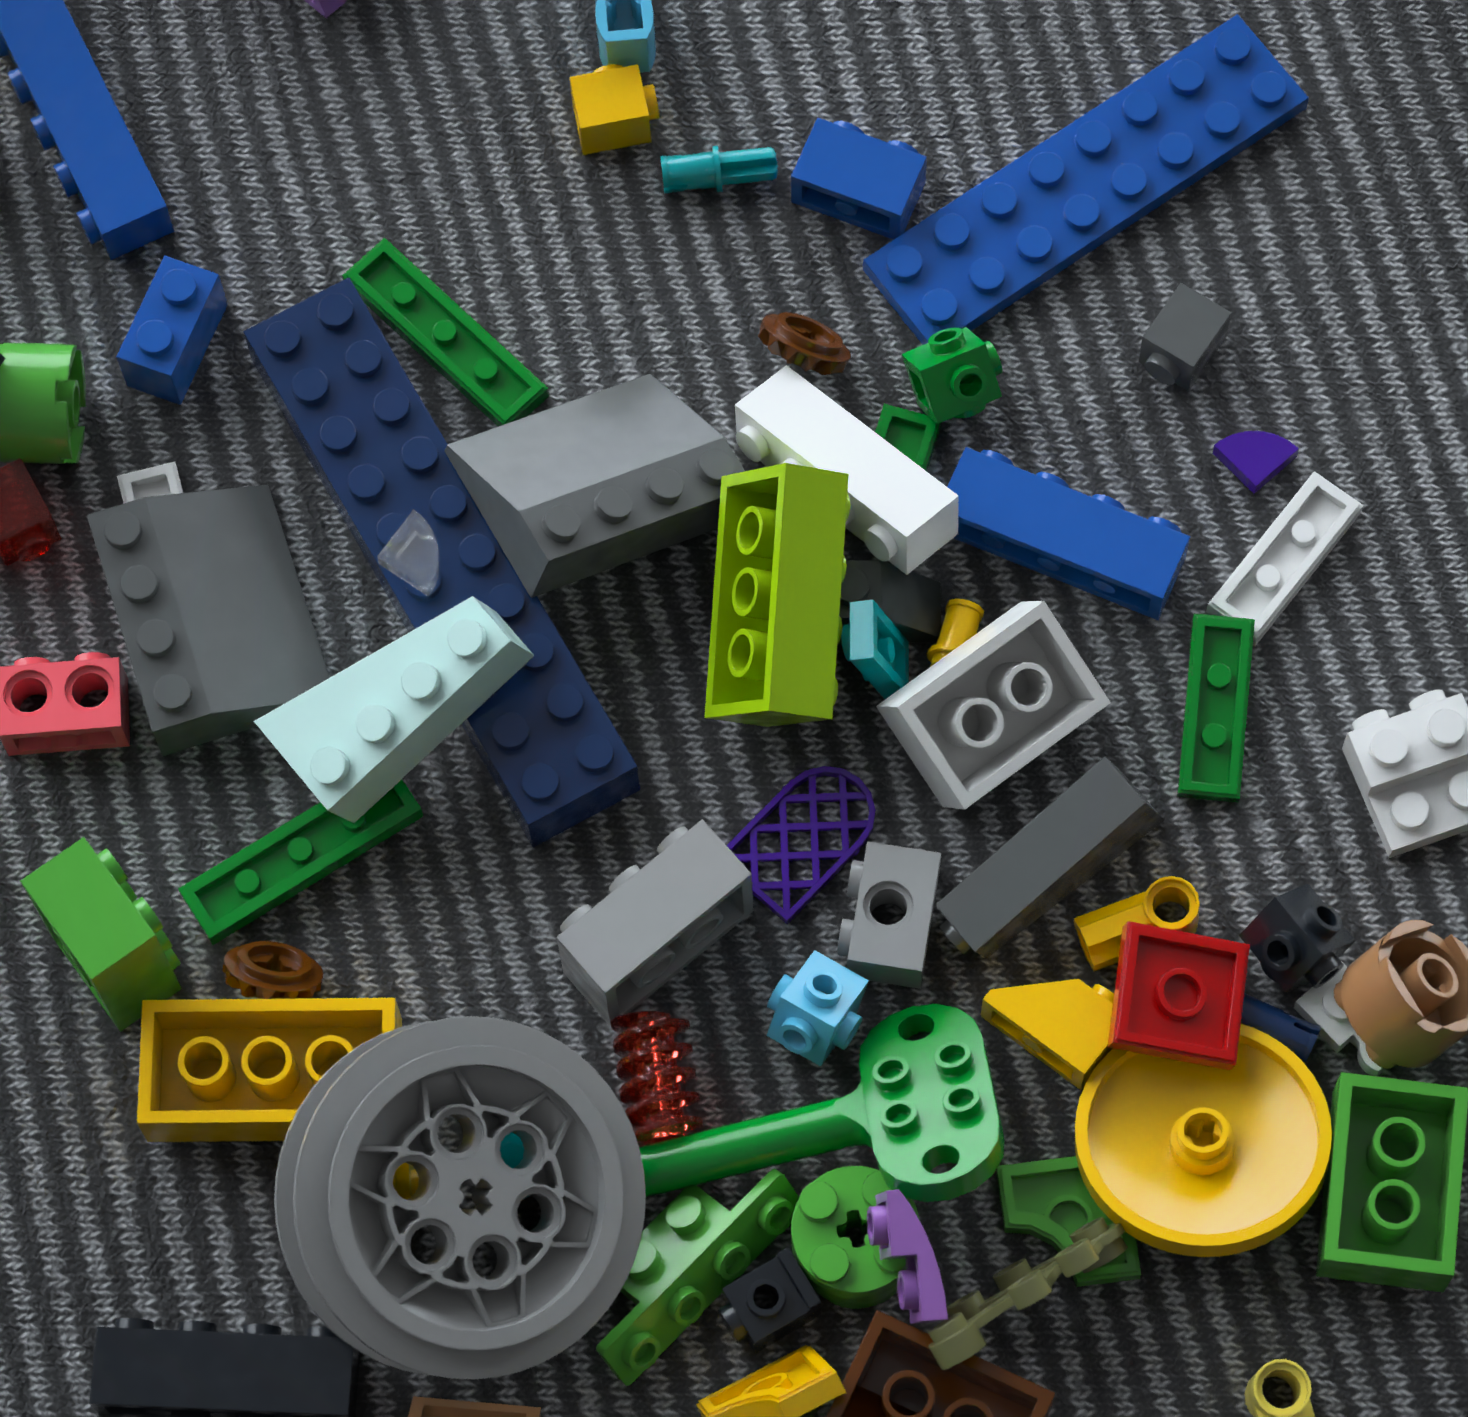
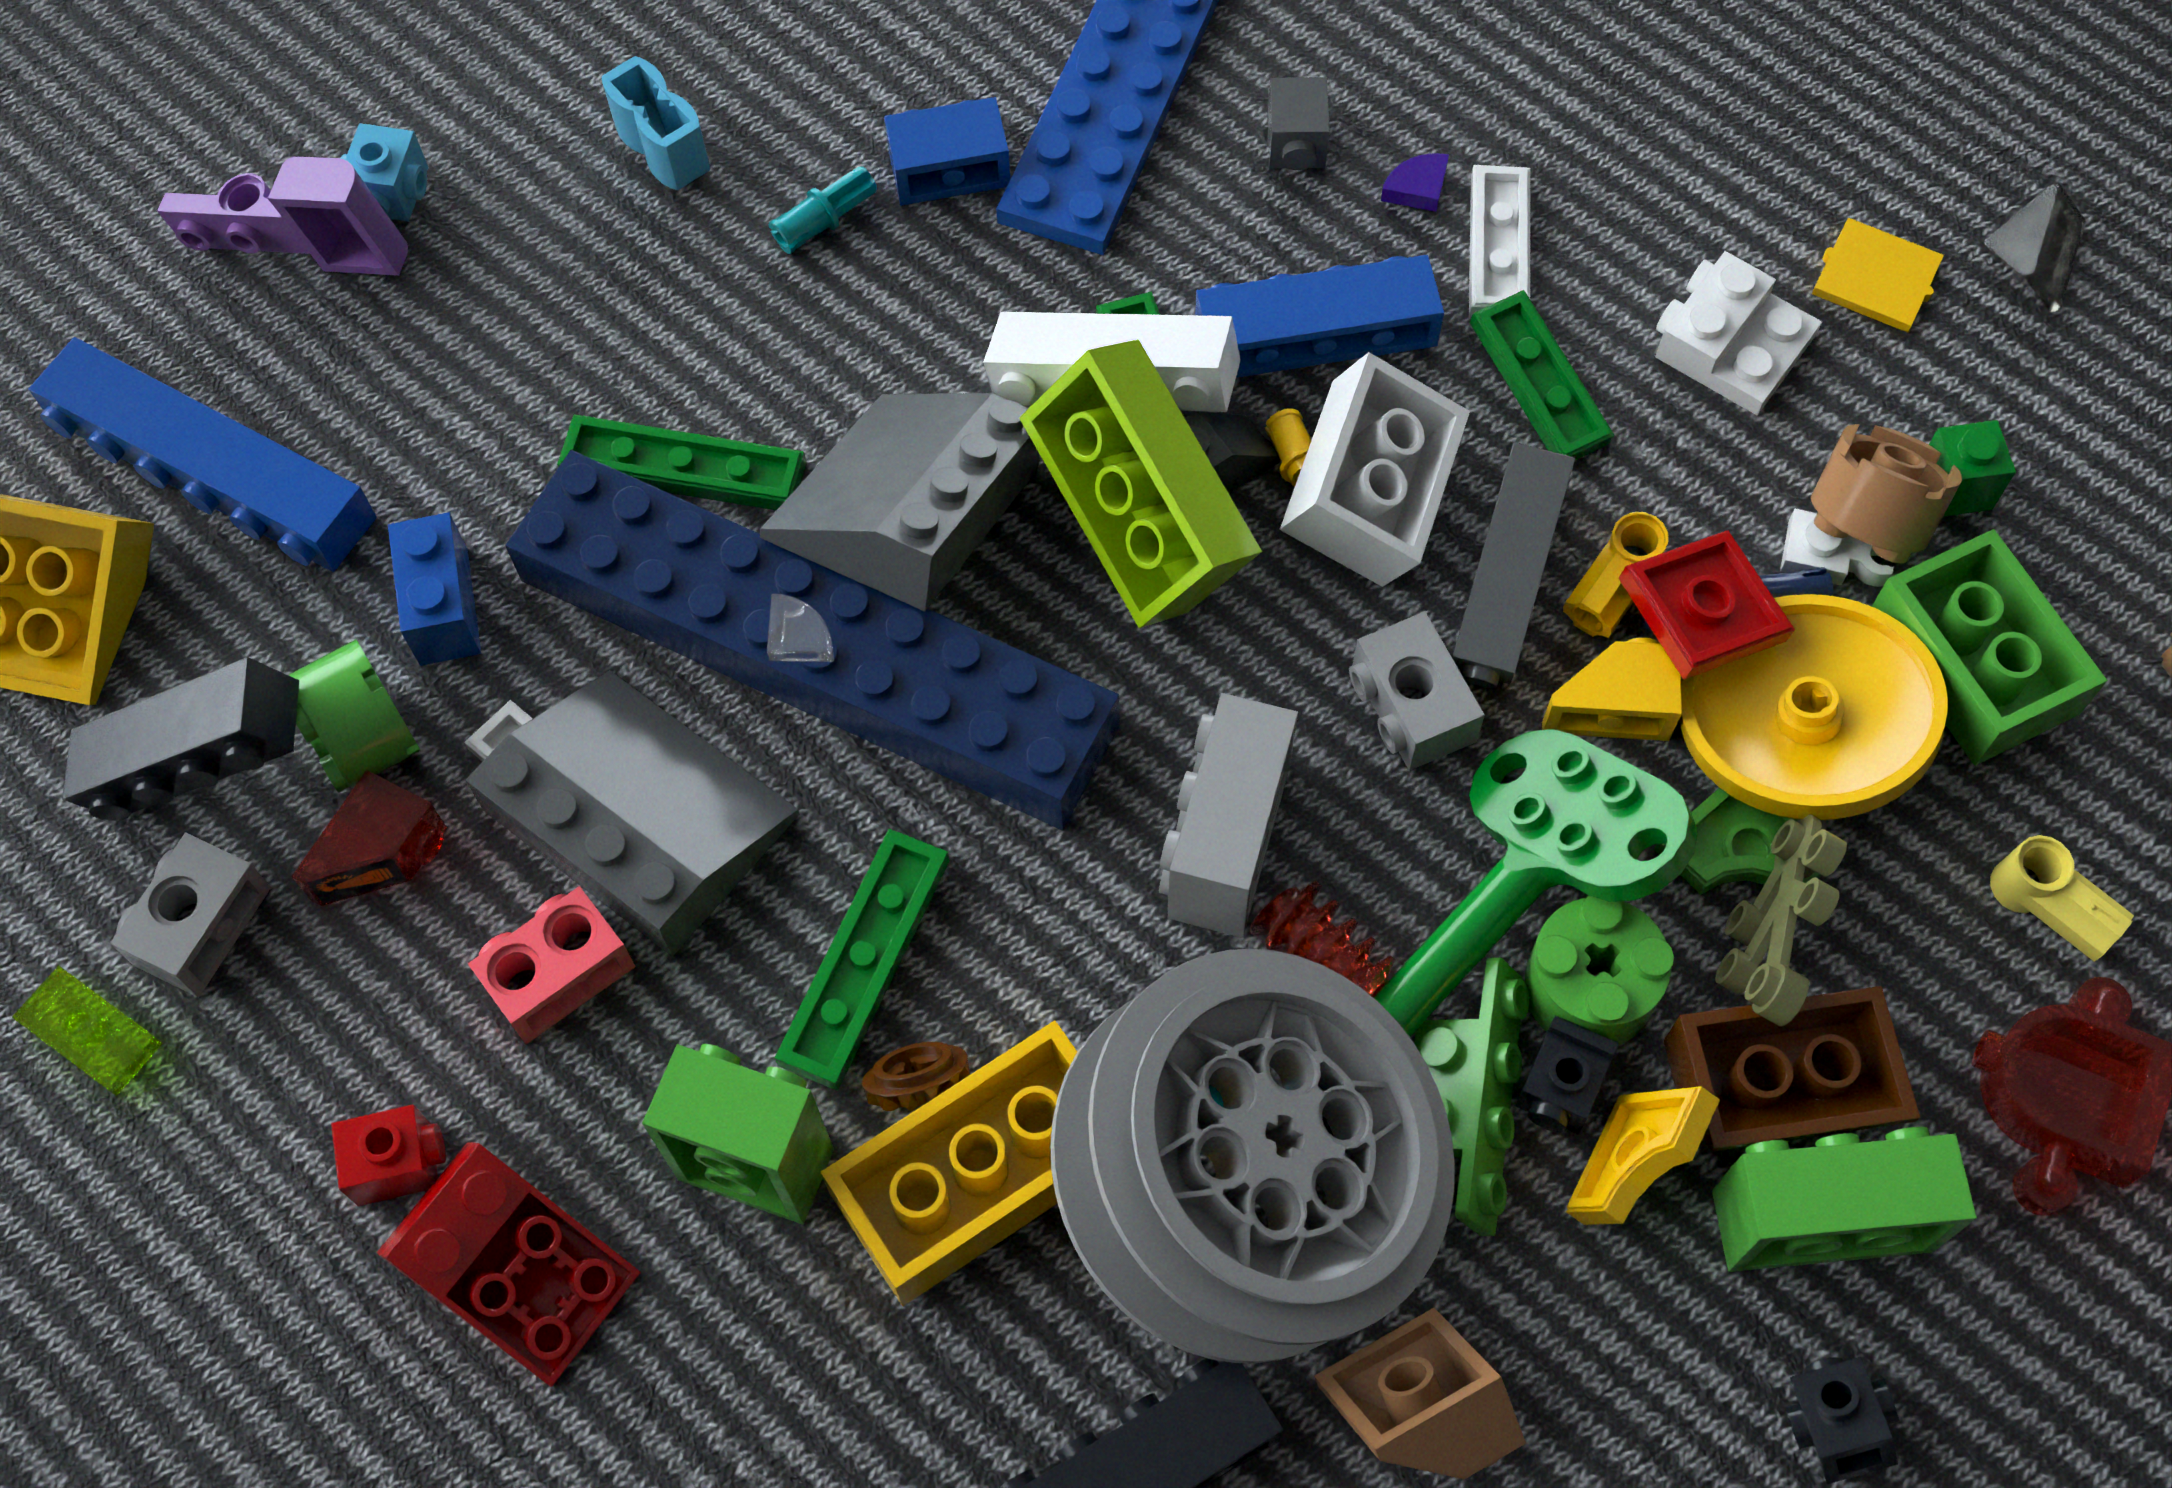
camera: 35 degrees left, 5 degrees down
(394, 707) = (872, 770): light aqua wedge -> none
(613, 108) = (701, 209): yellow brick -> none
(804, 343) = (999, 291): reddish brown gear -> none
(814, 1021) = (1417, 803): medium azure brick -> none
(844, 855) = (1309, 615): dark purple window -> none
(876, 647) = (1246, 484): teal plate -> none
(901, 1236) = (1661, 928): medium lavender slope -> none
(953, 374) = (1139, 247): green brick -> none
(1298, 939) = (1757, 507): black brick -> none

